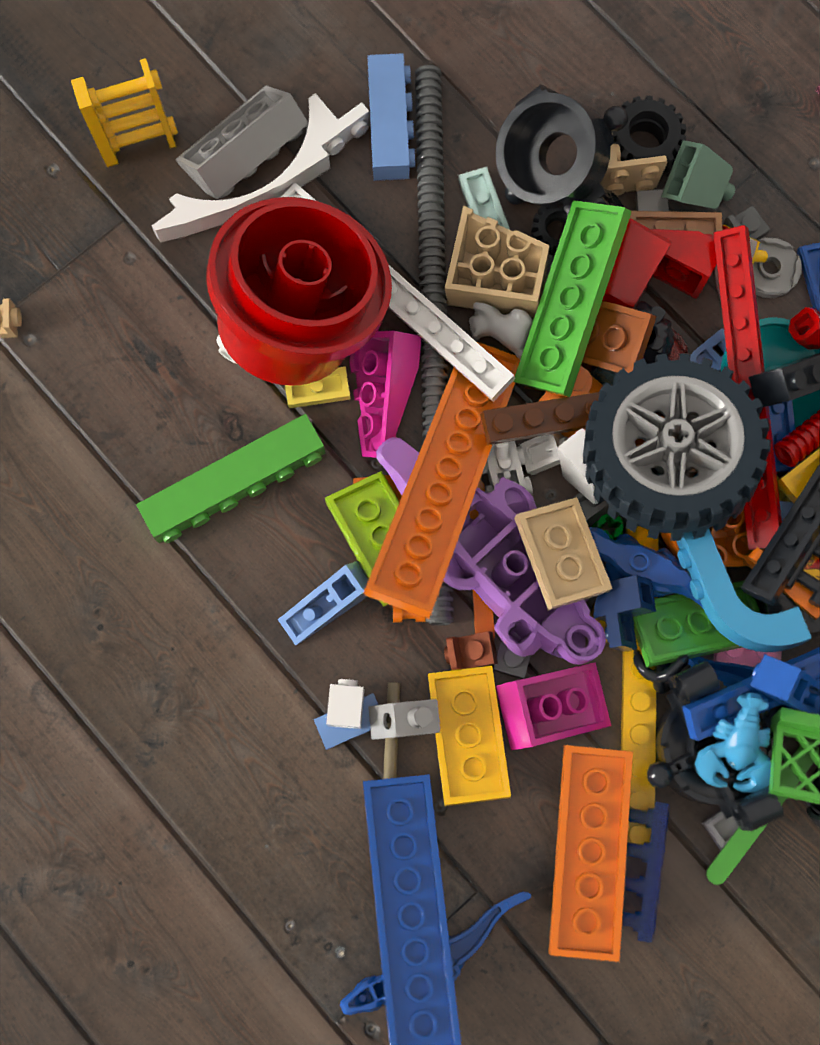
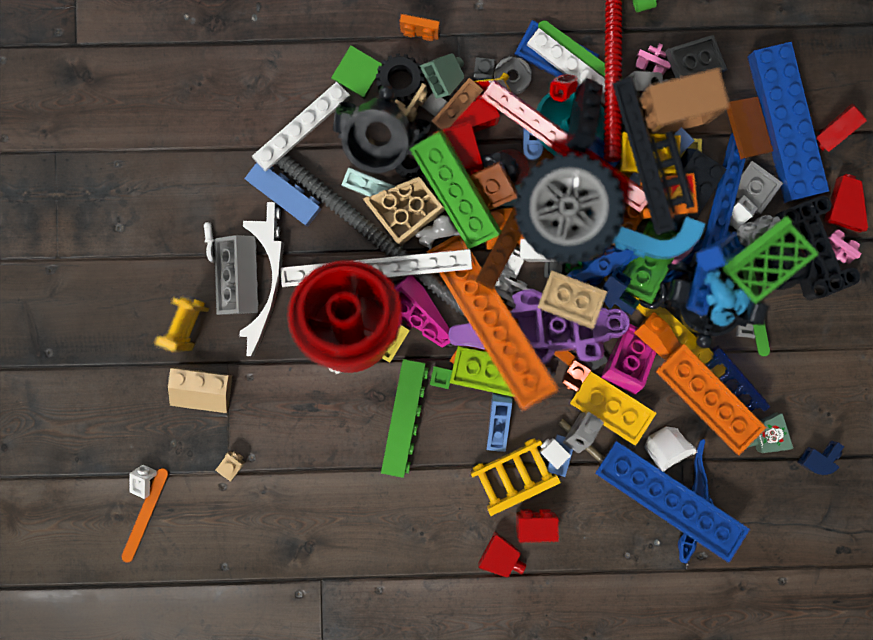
camera: 45 degrees left, 10 degrees up
(64, 209) = (199, 390): none -> tan slope
(150, 753) = (501, 557): none -> red torso
(228, 762) = (537, 526): none -> red brick
(249, 88) = (209, 239): none -> white piece
(275, 714) = (530, 487): none -> yellow fence
(322, 483) = (441, 377): none -> bright green plate
(479, 852) = (668, 447): none -> white slope
(481, 69) = (300, 127): none -> white plate
(608, 82) = (356, 71): none -> bright green tile
(613, 712) = (658, 336): none -> orange slope
(614, 985) = (775, 435): none -> sand green torso
(727, 108) = (418, 26): none -> orange plate
(730, 664) = (683, 267): none -> black piece

